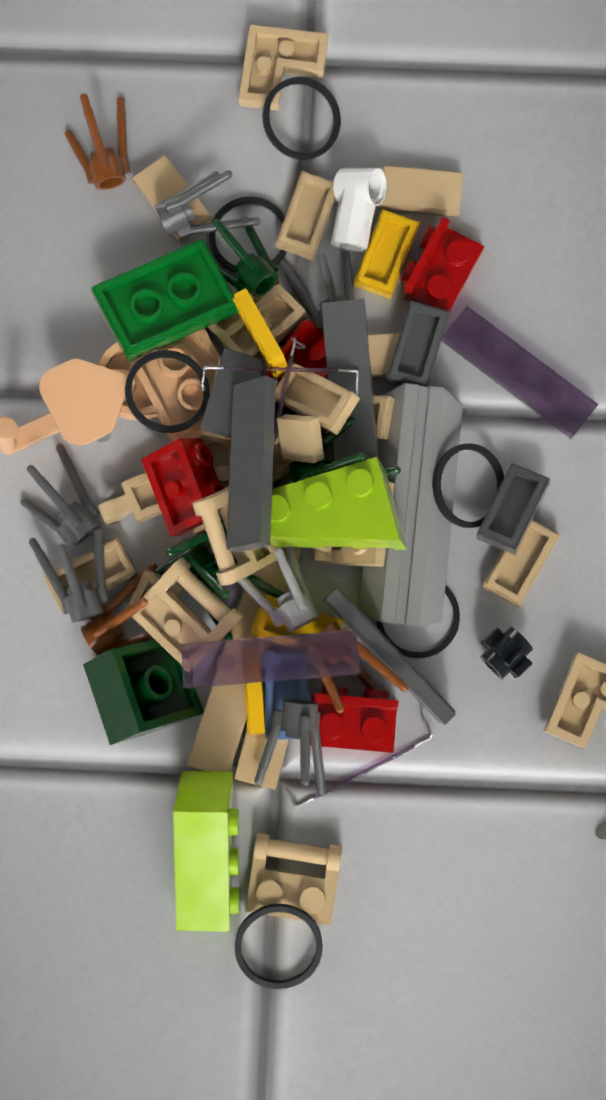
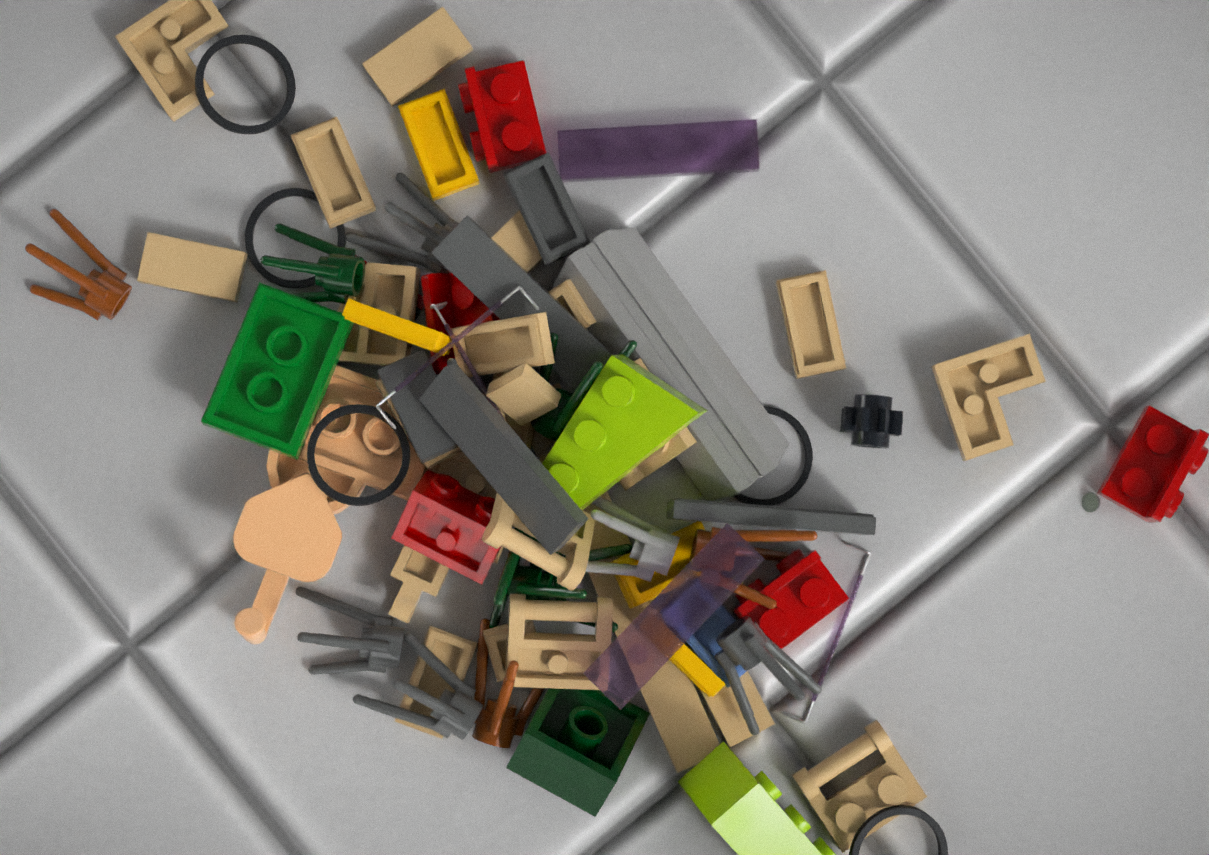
camera: 45 degrees left, 5 degrees up
(177, 212) = (212, 278): dark grey plant -> none
(357, 194) = (366, 114): white piece -> none
(436, 484) = (676, 322): black piece -> none
(513, 508) = (764, 284): dark grey tile -> none

